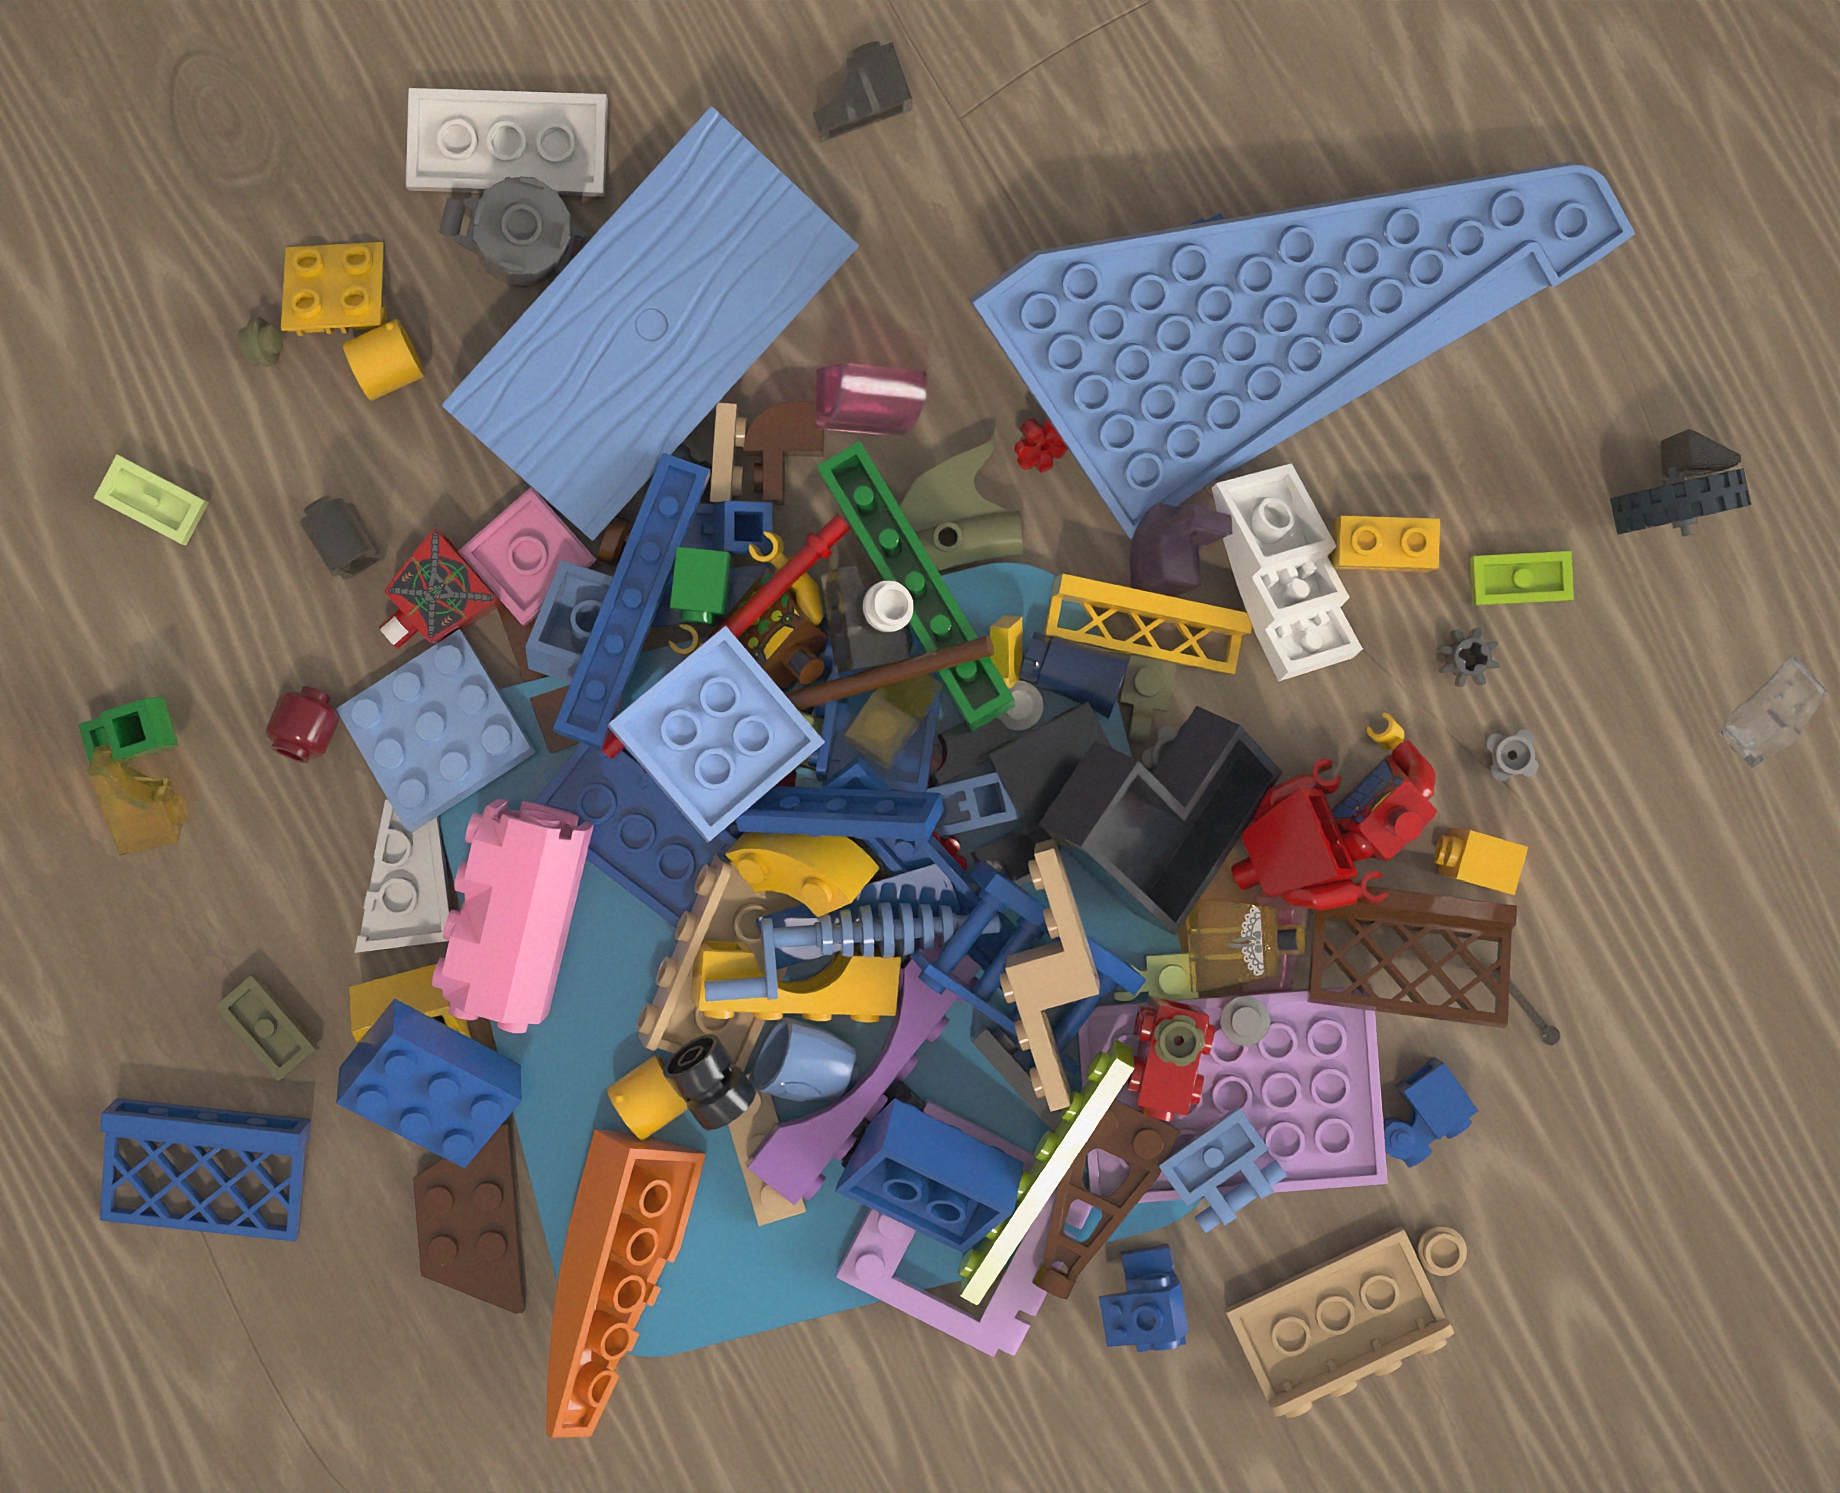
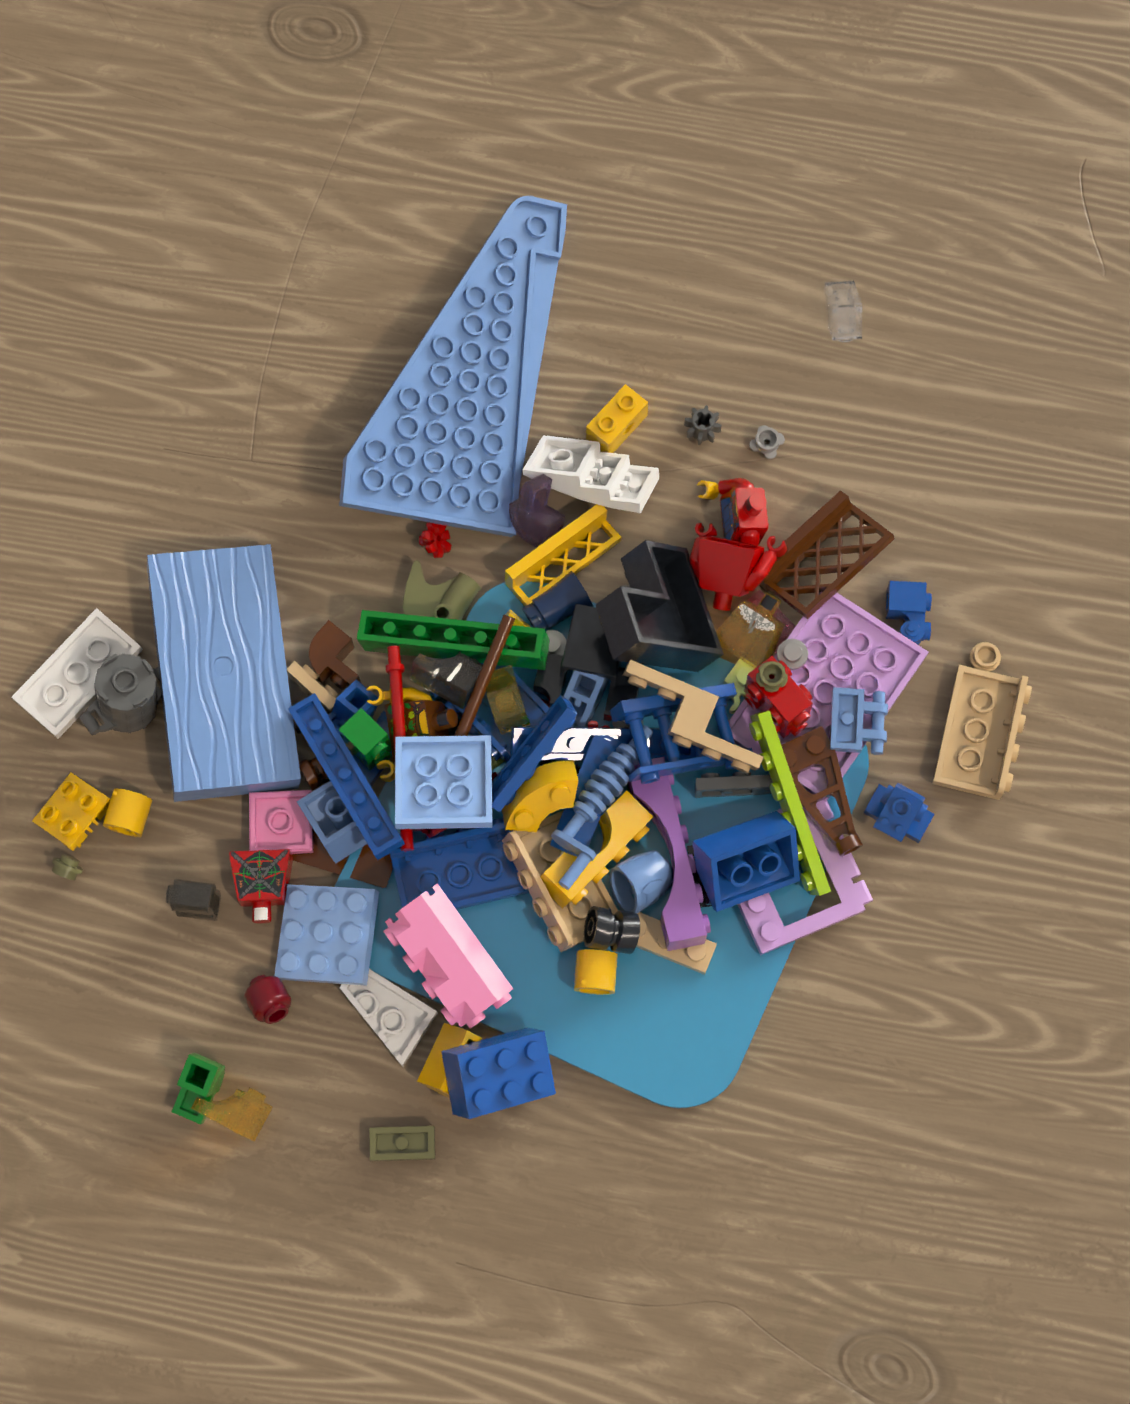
camera: 50 degrees left, 15 degrees down
(151, 500) = (94, 984): yellowish green plate -> none
(207, 1128) = (427, 1217): blue fence -> none
(472, 1225) = (588, 1122): reddish brown wing -> none
(616, 1245) = (657, 1050): orange wedge -> none
(869, 398) = (345, 597): clear pink brick -> none
(870, 94) = (205, 486): clear smoke arch -> none
(888, 606) = (451, 652): white plate -> none
(1146, 688) = (595, 581): olive plate -> none
(1480, 860) = (804, 489): yellow brick -> none
(1521, 578) = (685, 374): lime plate -> none
(1548, 1034) = (918, 528): clear smoke hinge -> none
(1680, 501) = (707, 273): black wheel -> none
(1696, 455) = (692, 252): clear smoke slope -> none

